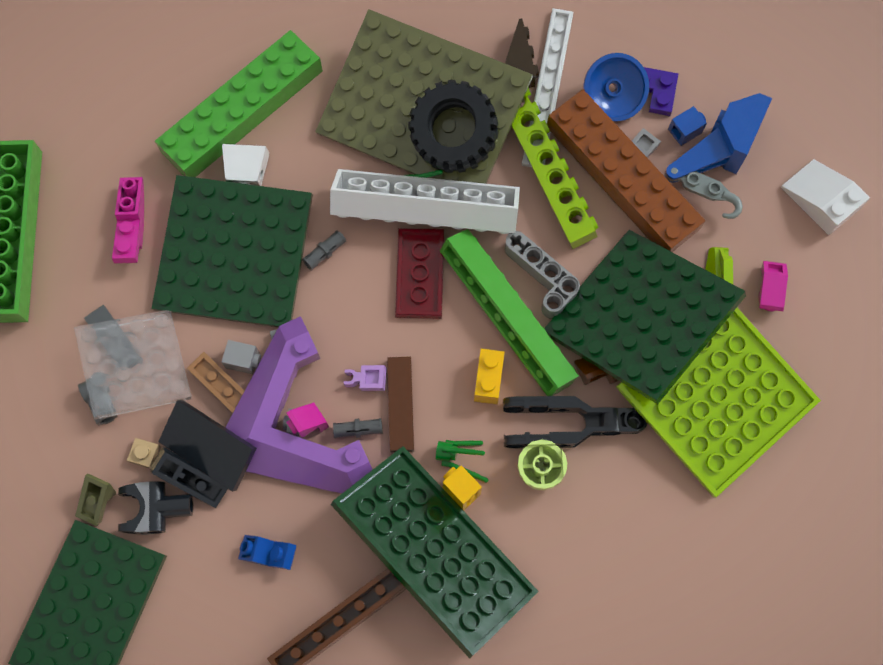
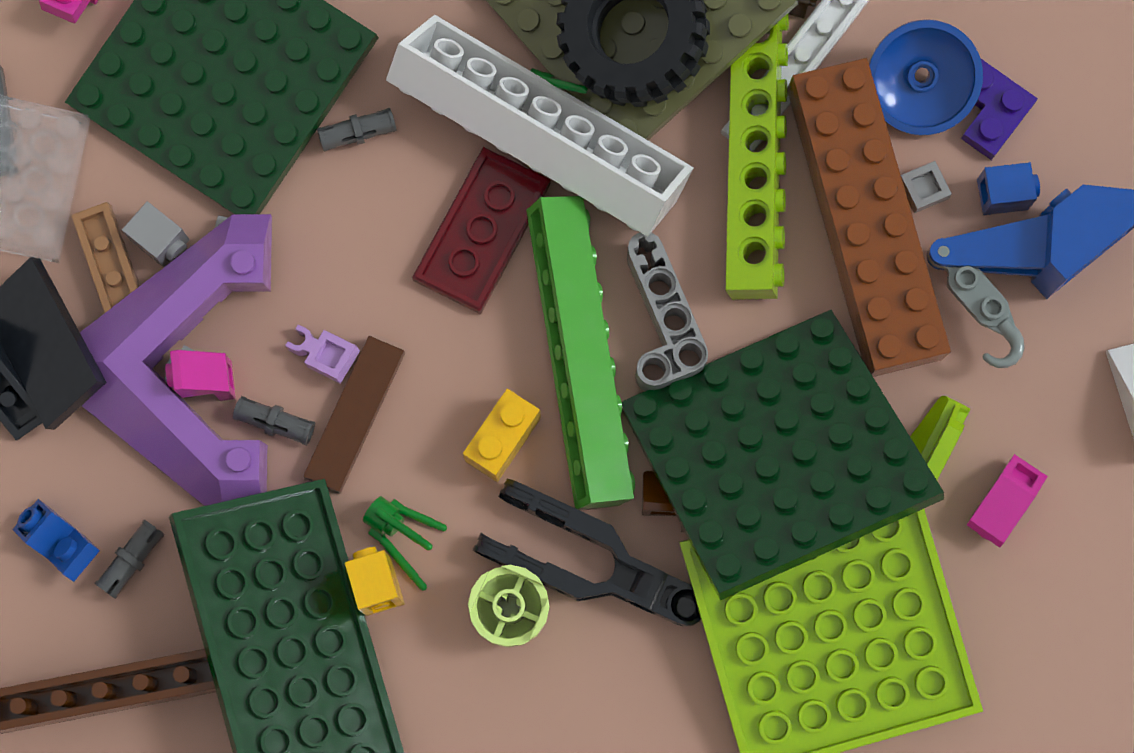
camera: 25 degrees right, 5 degrees up
(314, 543) = (129, 559): none -> dark grey pin

